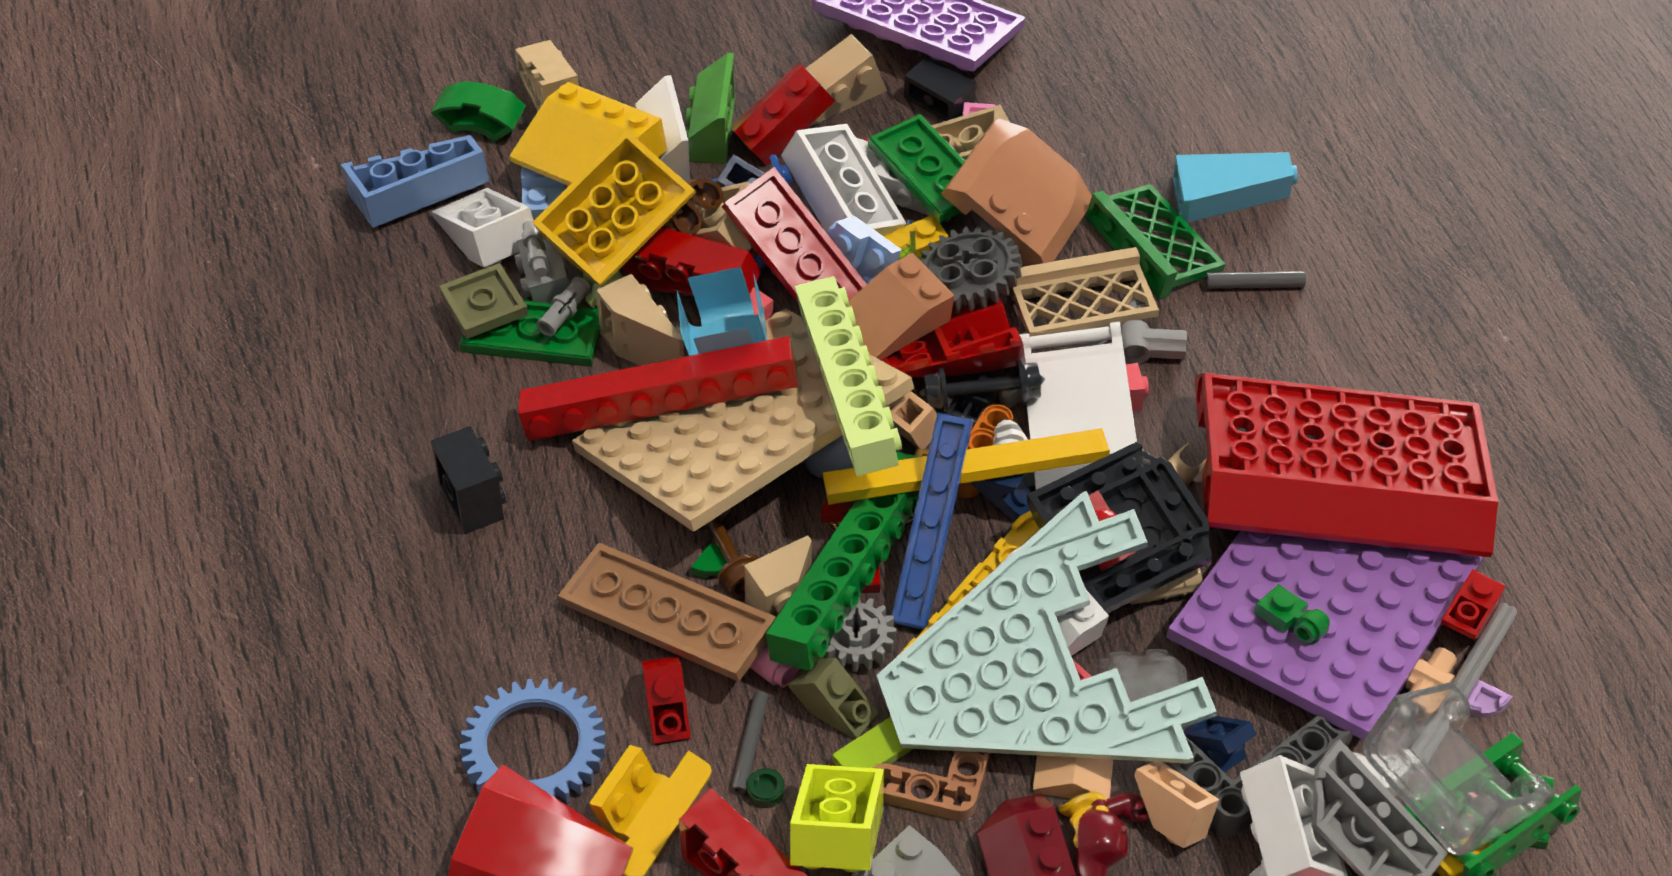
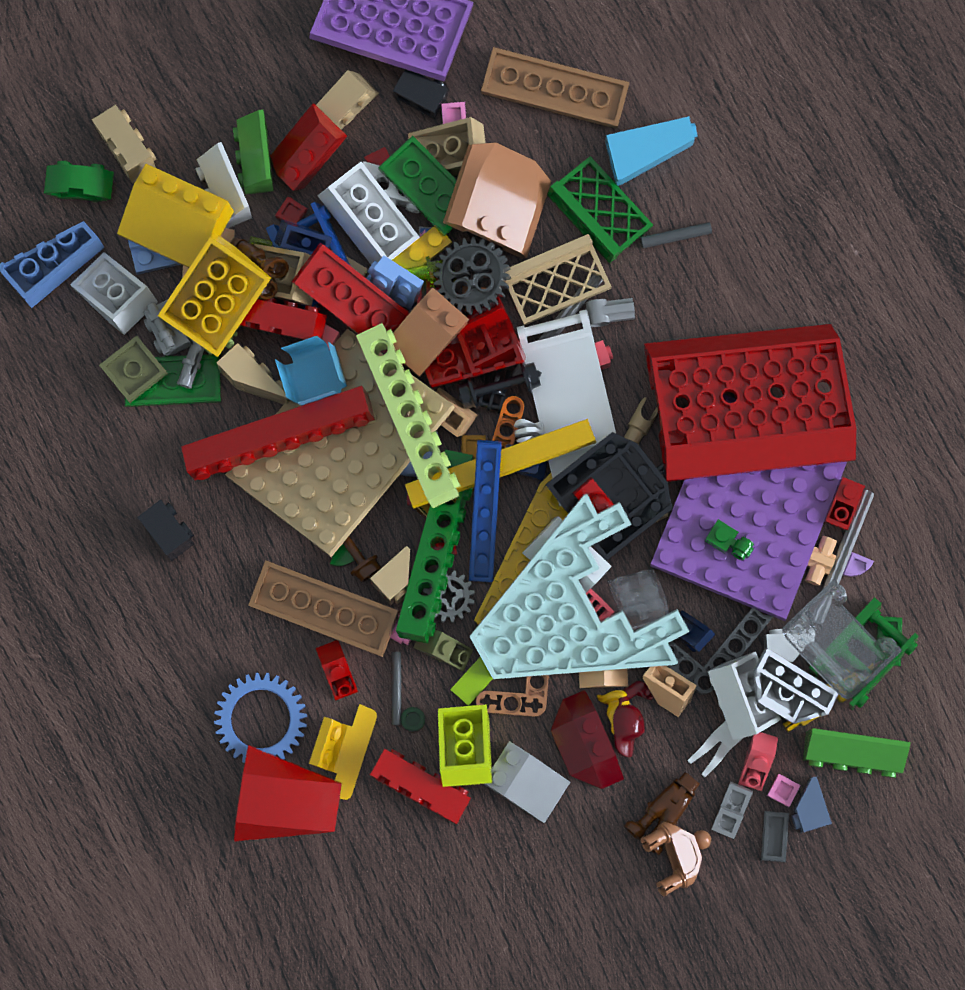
camera: 15 degrees left, 30 degrees up
(1115, 110) = (555, 87): none -> medium nougat plate

